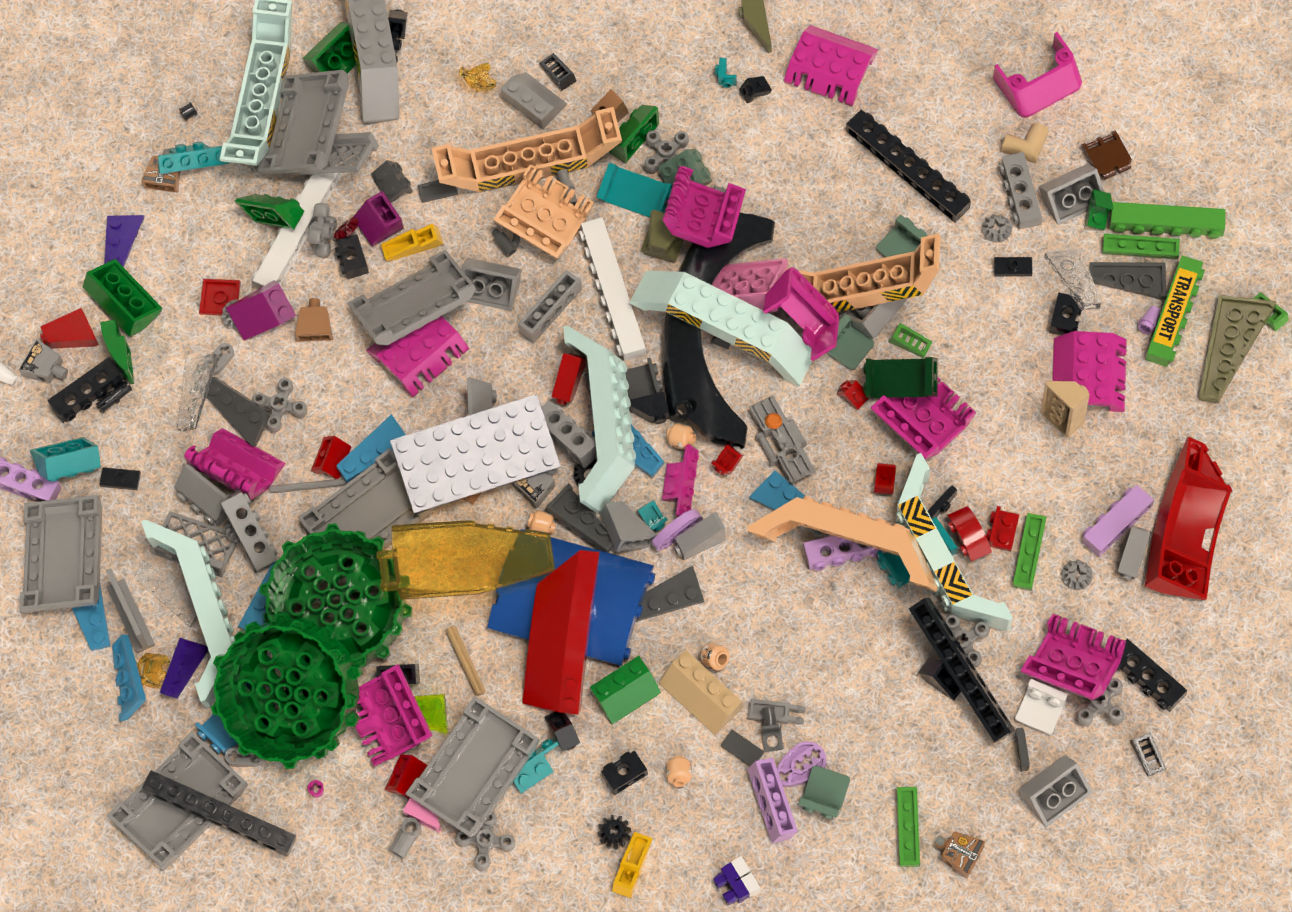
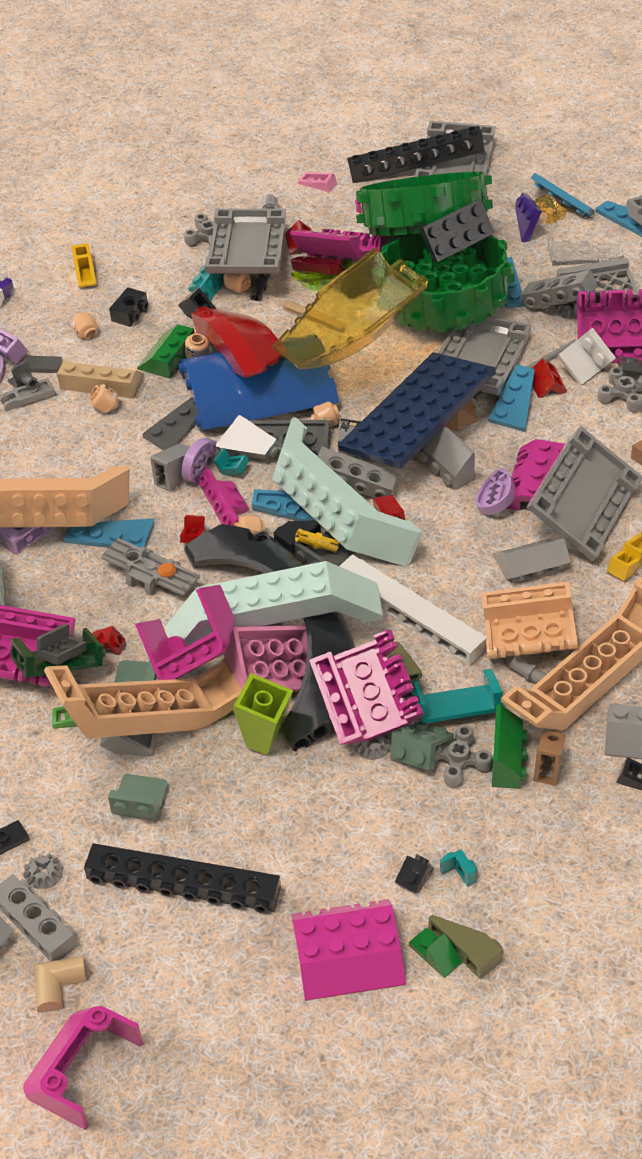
camera: 145 degrees right, 20 degrees down
(129, 613) = (599, 228): light grey fence -> none
(204, 595) = (560, 240): light aqua slope -> none
(286, 453) = (586, 356): none -> white bracket
(302, 601) = (457, 230): none -> black plate
(320, 846) = (319, 181): none -> bright pink slope
(426, 711) = (316, 265): none -> dark red beam
(463, 347) = (496, 492): none -> lavender piece
(549, 306) = (456, 561): light grey brick -> none
(597, 669) = (196, 345): none -> light nougat head
(611, 838) = (111, 275): black gear -> none
(641, 385) = (316, 540): none -> yellow pin
(779, 33) = (436, 951): none -> green slope
(782, 235) = (261, 712): none -> lime slope
(885, 478) = (29, 586): red bracket -> none
(897, 377) = (58, 646): none -> dark grey bracket

